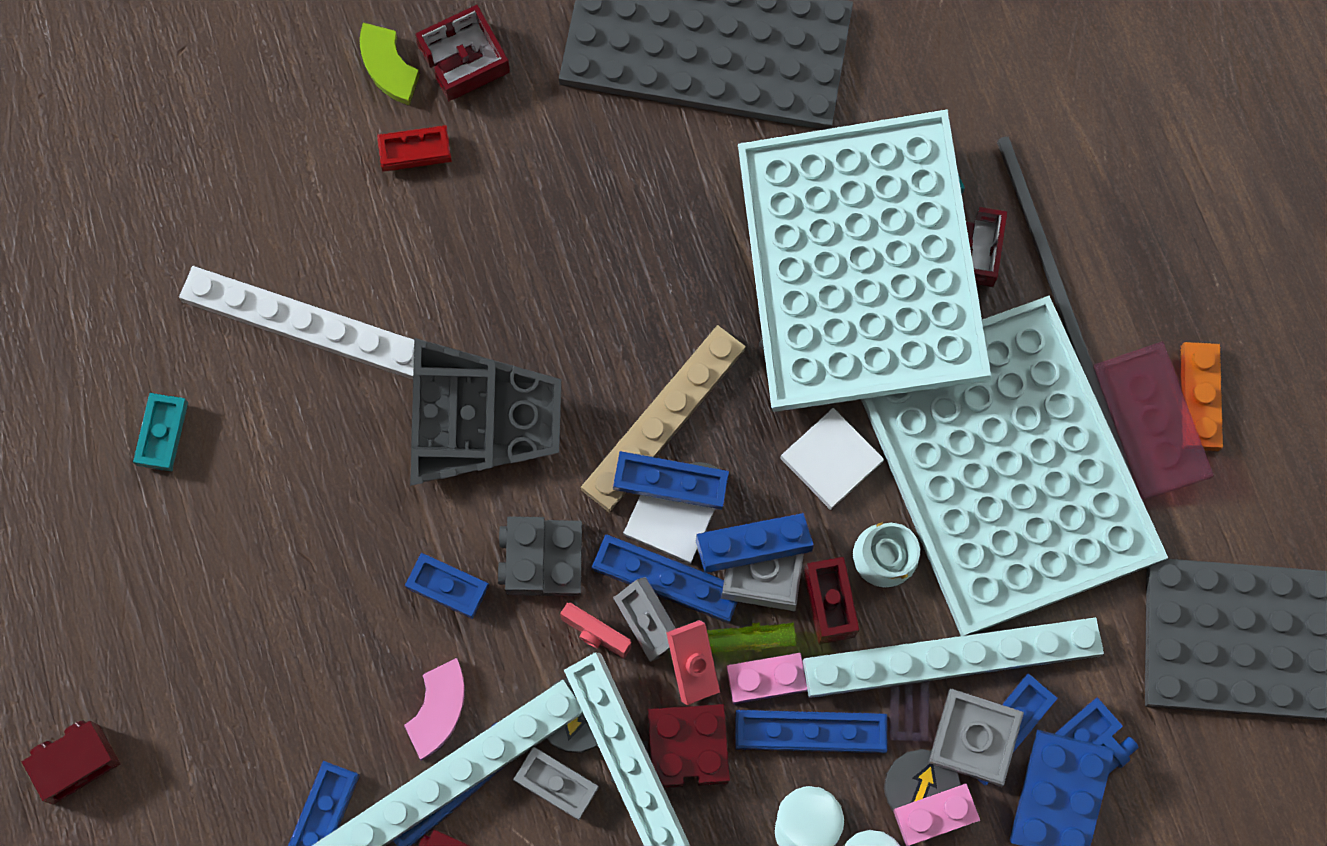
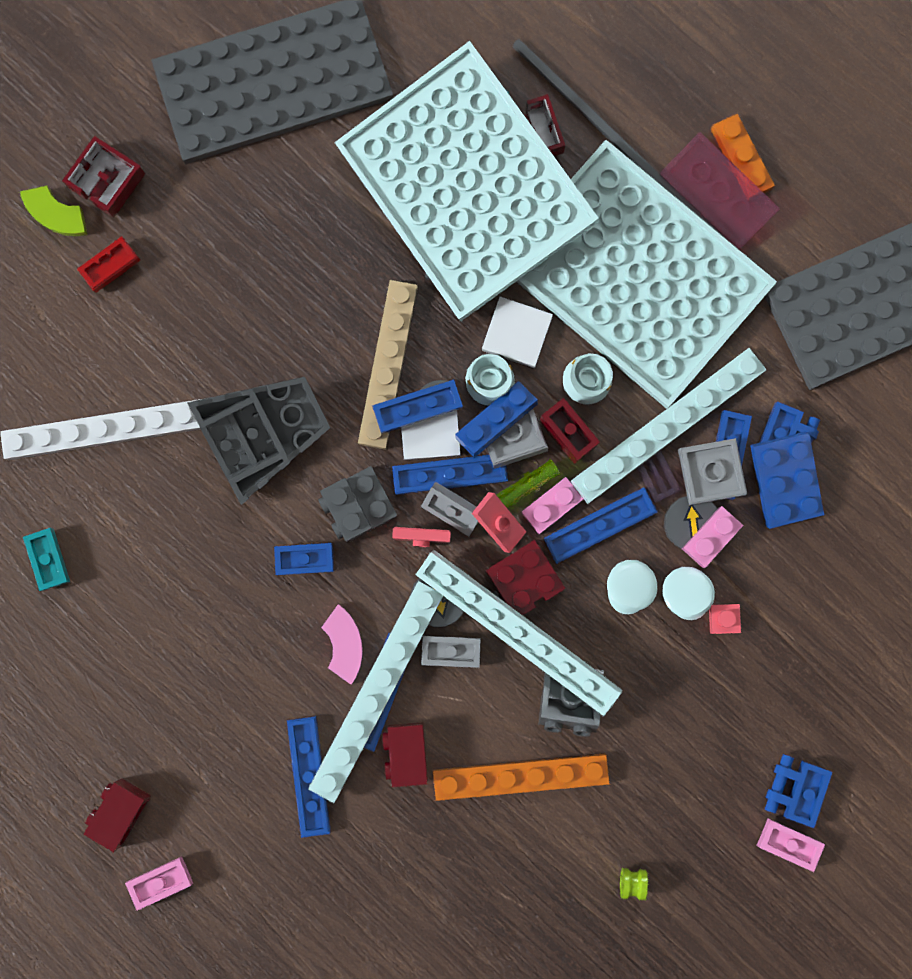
camera: 25 degrees left, 10 degrees up
(771, 493) = (489, 378): none -> light aqua piece

